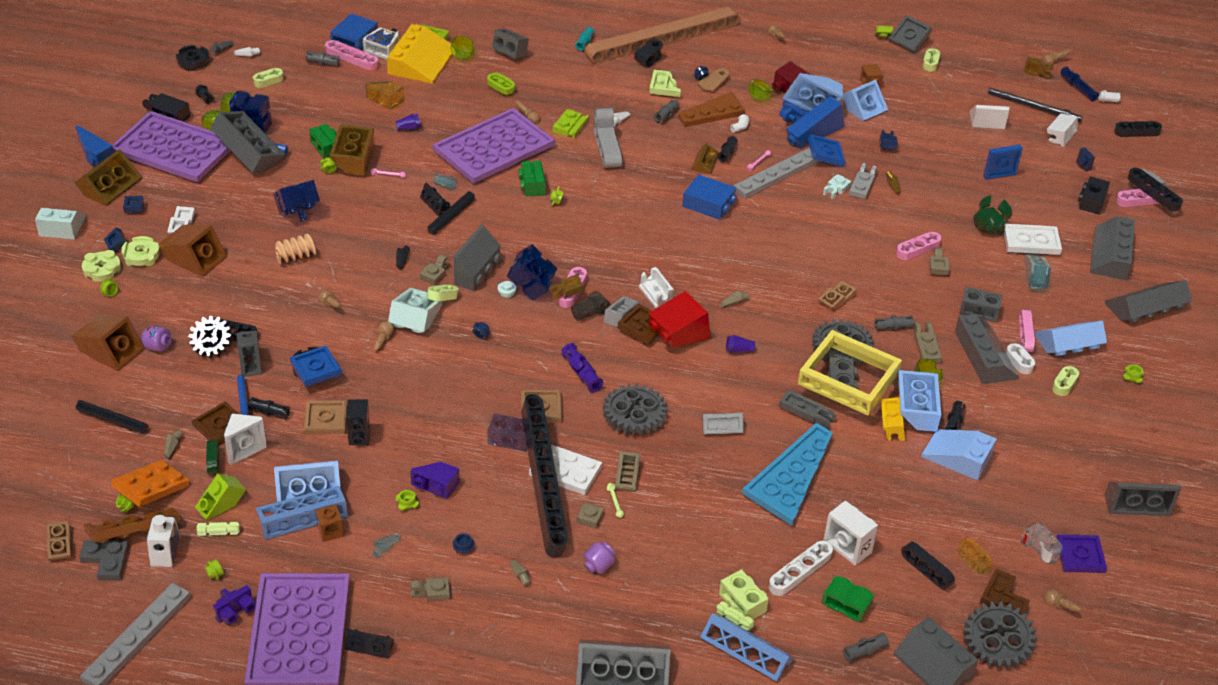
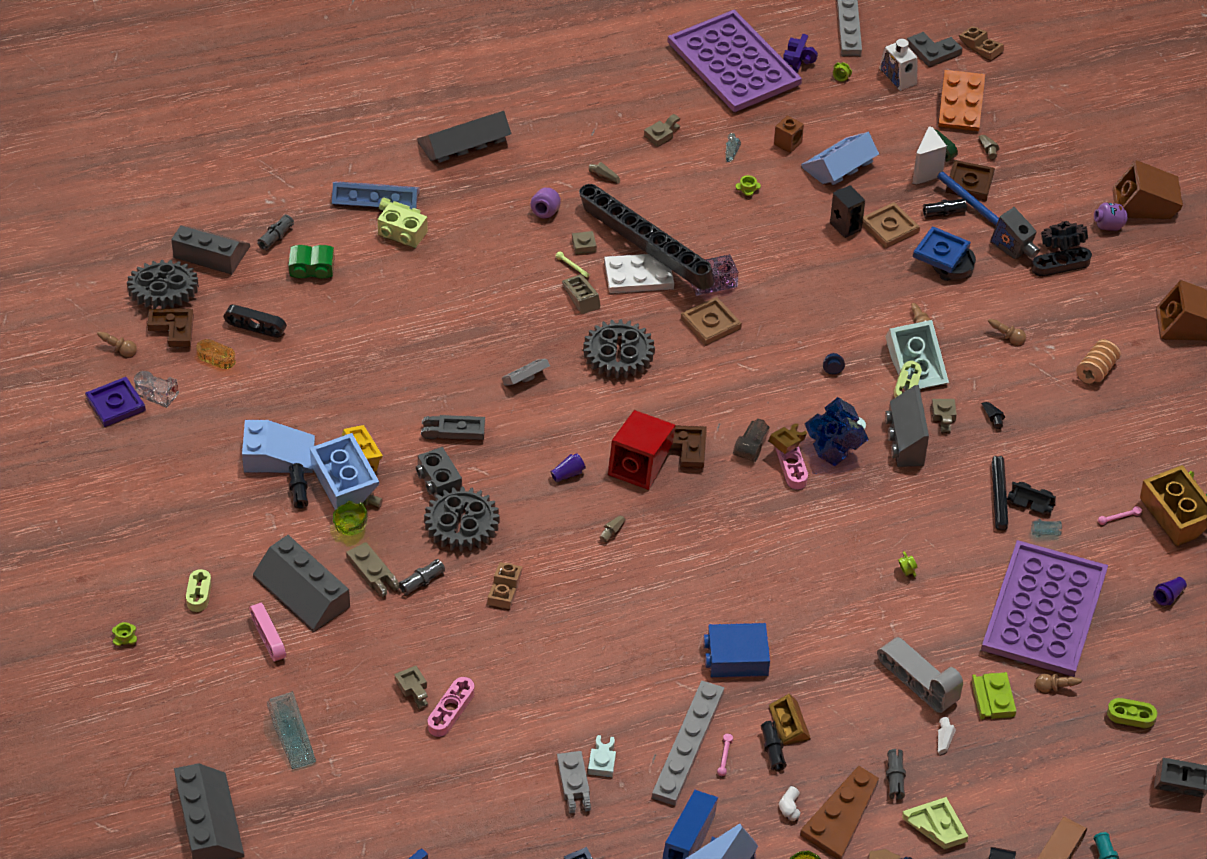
camera: 150 degrees right, 5 degrees up
(111, 416) = (1063, 143): black axle -> none
(125, 528) = (947, 56): dark orange wing -> none
(218, 528) = (874, 101): yellowish green axle -> none
(220, 496) = (896, 117): lime slope -> none
(297, 199) = (1159, 406): clear blue brick -> none
(302, 516) = (818, 128): medium blue fence -> none
(368, 643) = (665, 75): black hinge -> none
(436, 478) = (738, 208): dark purple slope -> none
(463, 543) = (668, 172): dark blue plate -> none
(532, 178) = (955, 576): green brick -> none
(582, 367) = (702, 368): dark purple piece -> none
(618, 310) = (719, 441): light grey slope -> none
(656, 288) = (700, 496): white hinge -> none
(787, 479) = (429, 349): dark azure wing -> none
(798, 566) = (370, 276): white beam -> none
(826, 150) = (649, 803): blue tile -> none
(839, 391) = (428, 429): light yellow window -> none
(850, 532) = (338, 304): white brick -> none
(893, 180) = (535, 799): pearl gold bar -> none
(981, 303) = (335, 642): dark grey brick -> none
(990, 219) = (380, 780): dark green helmet -> none
(1020, 358) = (262, 594): white beam -> none
(1032, 239) = (316, 782): white plate -> none
(1072, 337) = (214, 646): light blue slope -> none
(1141, 498) = (71, 466): dark grey slope -> none
(1150, 300) = (138, 747): dark grey slope -> none

